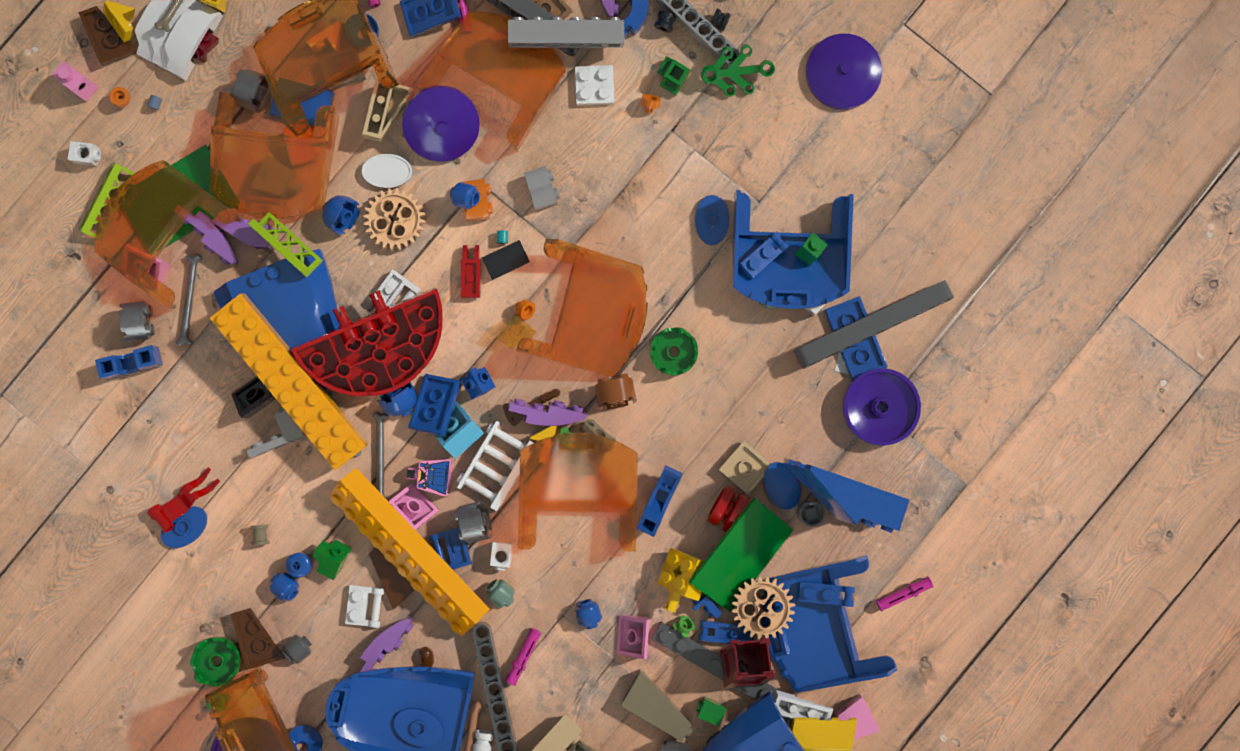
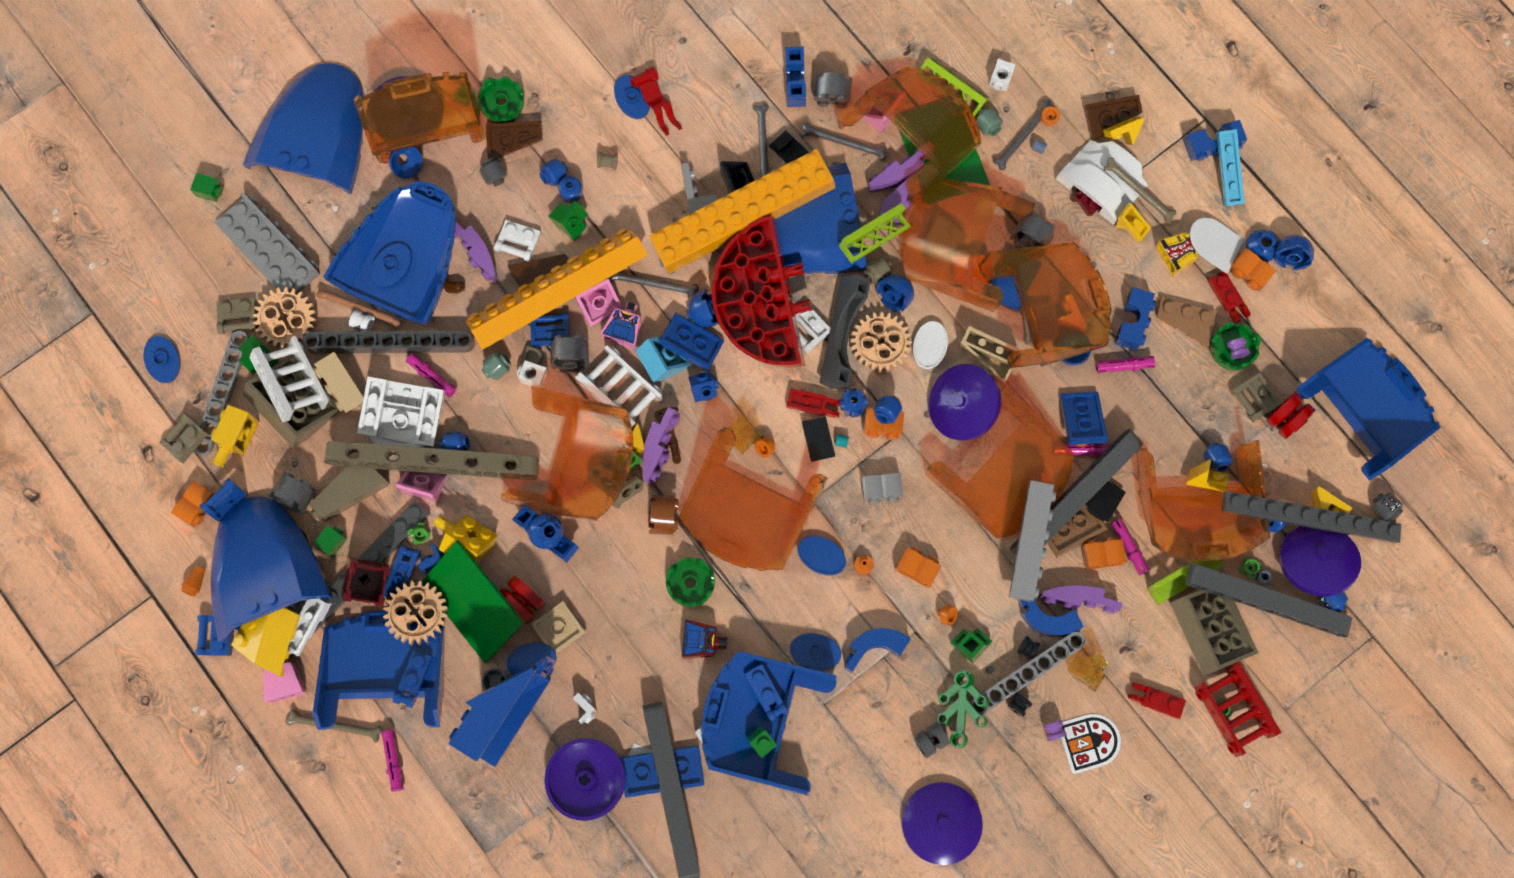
camera: 100 degrees right, 10 degrees down
(73, 79) = (1076, 76): bright pink torso -> none
(138, 156) = (989, 122): none -> sand green head
(173, 390) = (761, 110): none -> flat silver piece
(178, 137) = (1001, 162): none -> flat silver piece
(210, 351) = (788, 147): none -> black piece
(321, 236) = (877, 270): none -> dark tan head
(355, 257) = (851, 296): none -> dark grey arch
(465, 239) = (853, 409): none -> blue brick
(481, 561) = (532, 355): none -> dark tan tile
(570, 675) = (400, 413): none -> white slope
(594, 85) = (976, 564): white plate -> none
(611, 138) = (918, 567): none -> orange brick
(613, 646) = (416, 460): none -> dark tan beam
(619, 196) = (863, 569): none -> orange tile
(619, 232) = (821, 555): none -> blue piece
(657, 508) = (537, 527): none -> blue piece
(689, 167) = (877, 638): none -> blue arch
(727, 328) = (701, 640): none -> torso
(778, 95) = (924, 741): none -> dark grey wheel
(810, 424) = (584, 701): none -> white bracket
(883, 618) = (371, 732): none -> dark tan piece

